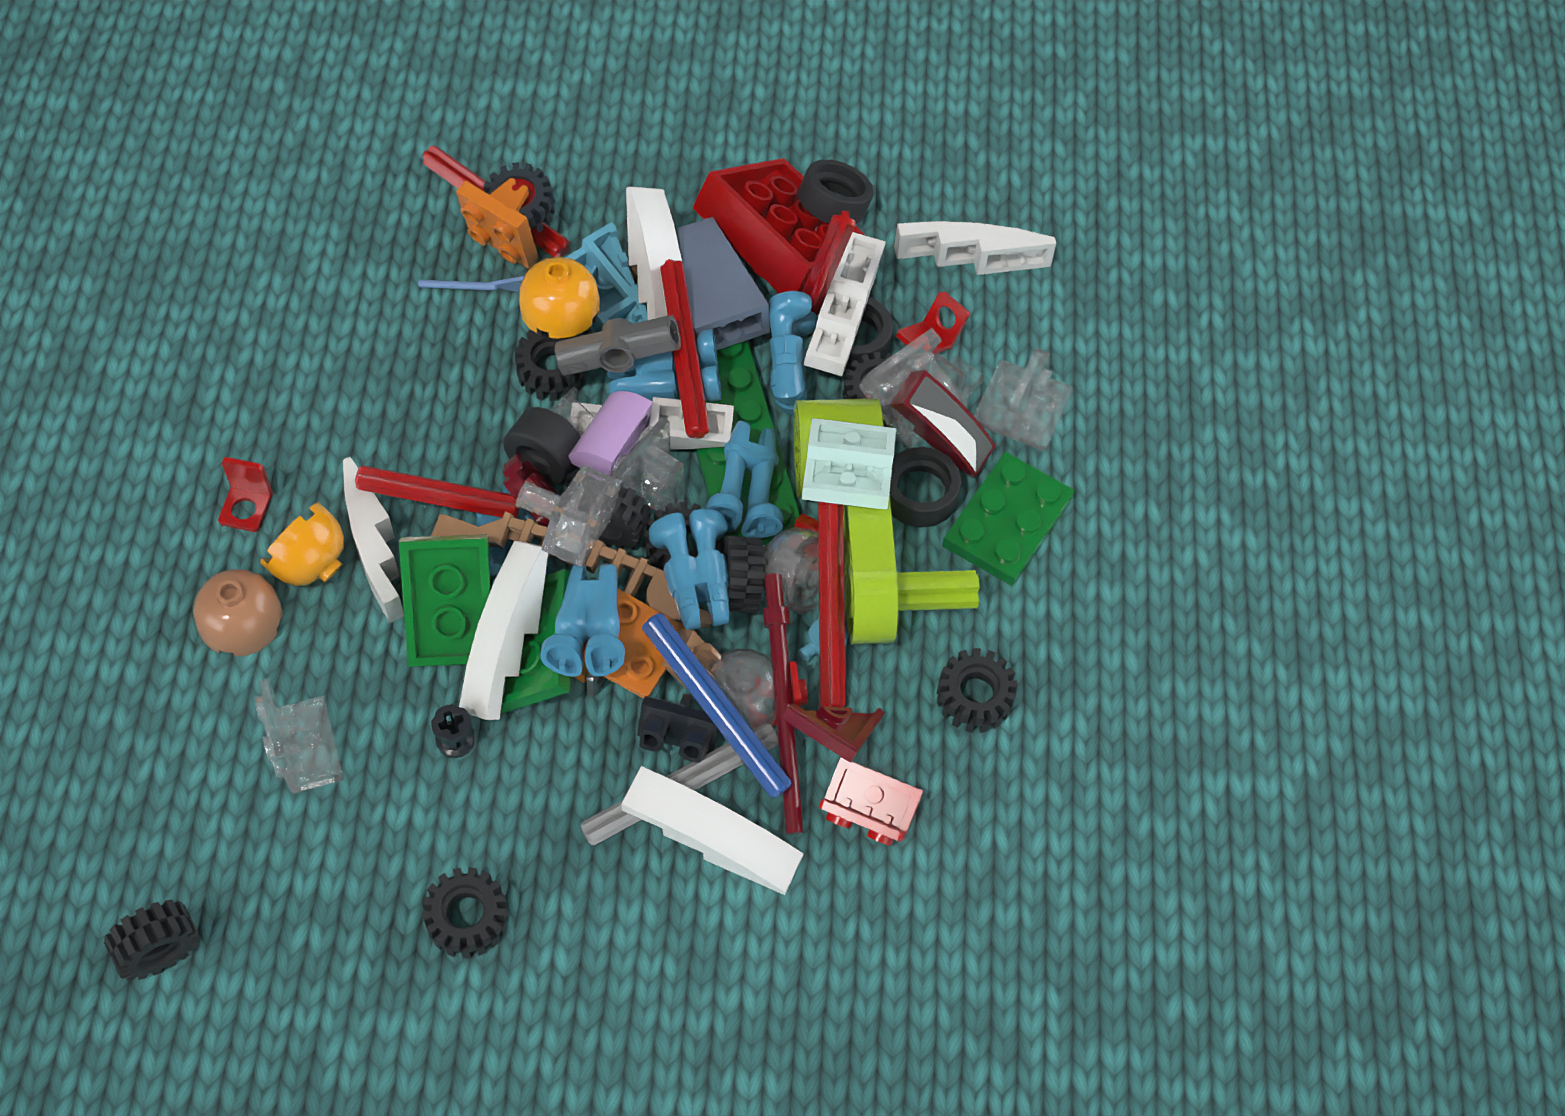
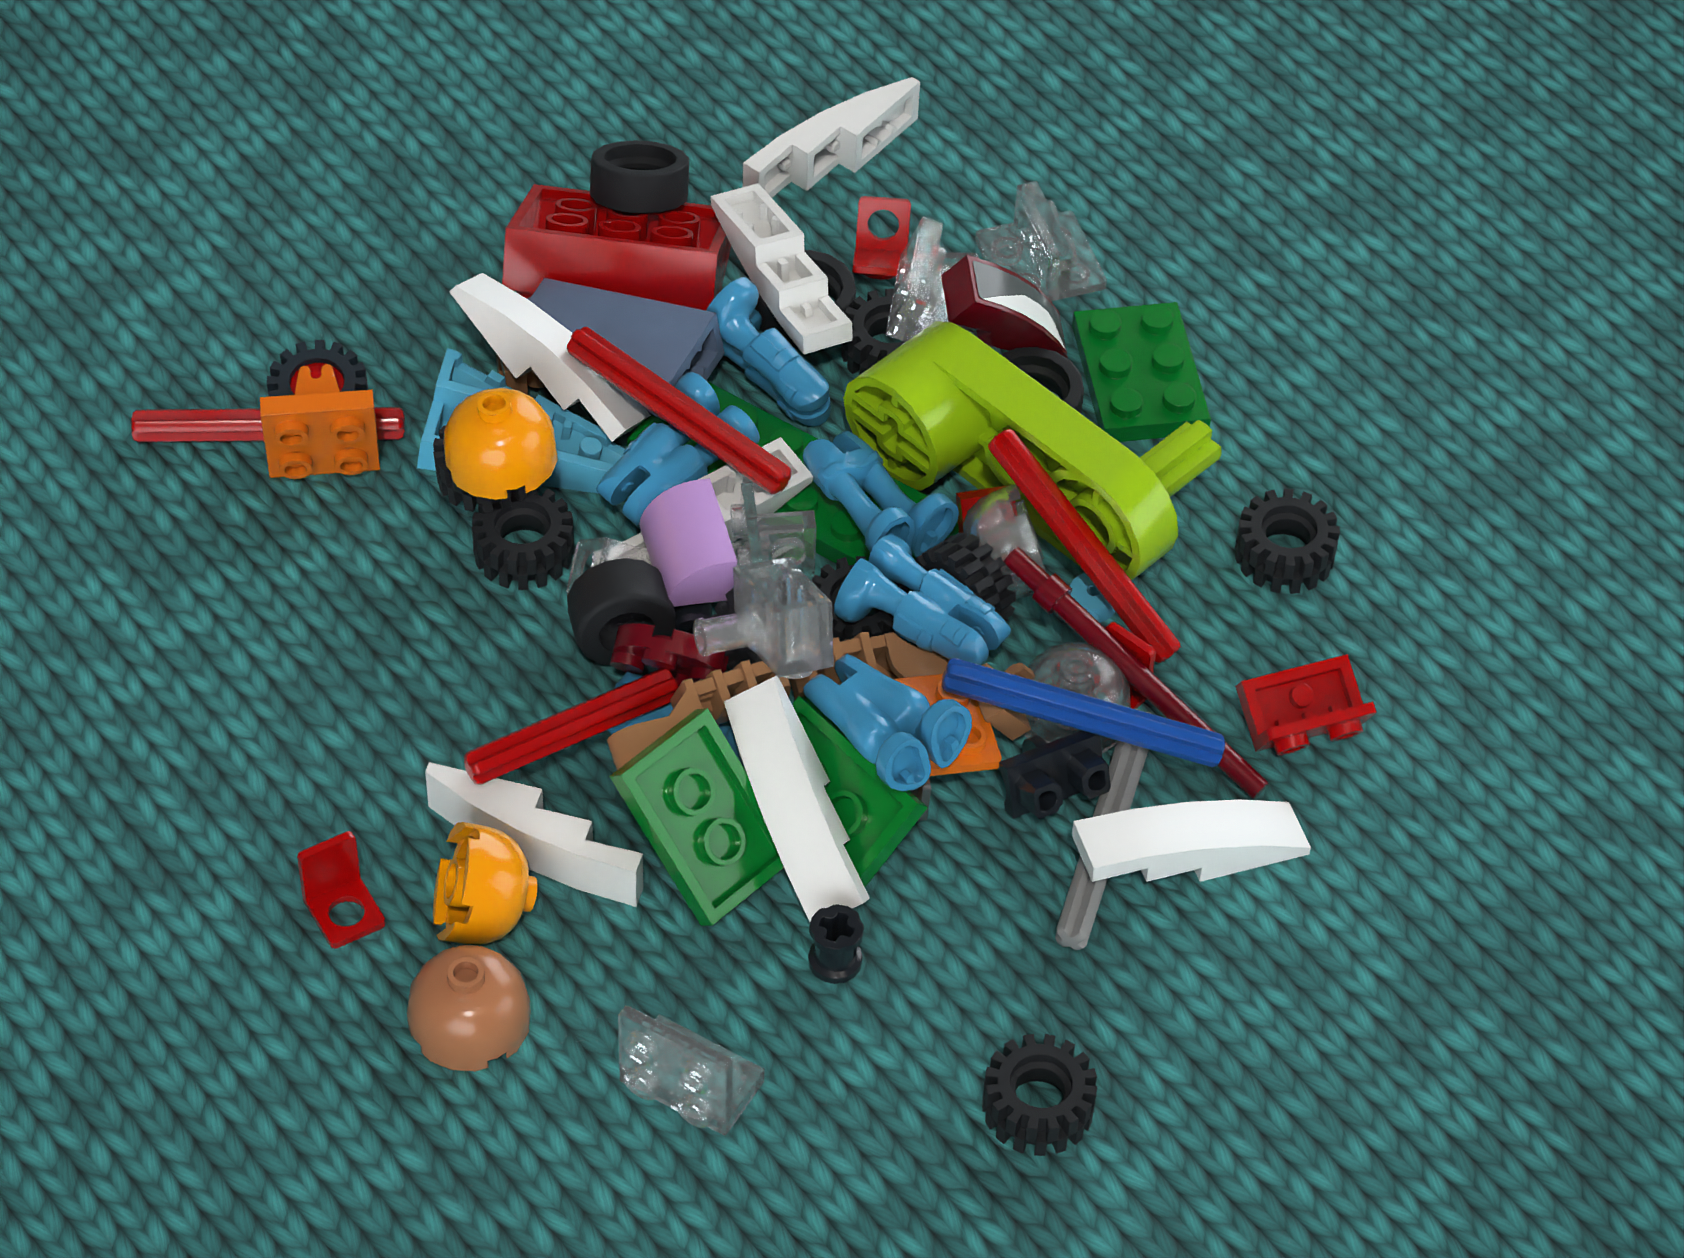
camera: 40 degrees left, 10 degrees down
(511, 284) = (415, 477): medium blue piece -> none
(618, 345) = (611, 451): dark grey piece -> none
(828, 258) = (762, 206): red axle -> none
(835, 727) = (1207, 659): dark red tile -> none
(849, 464) = (990, 389): light aqua slope -> none

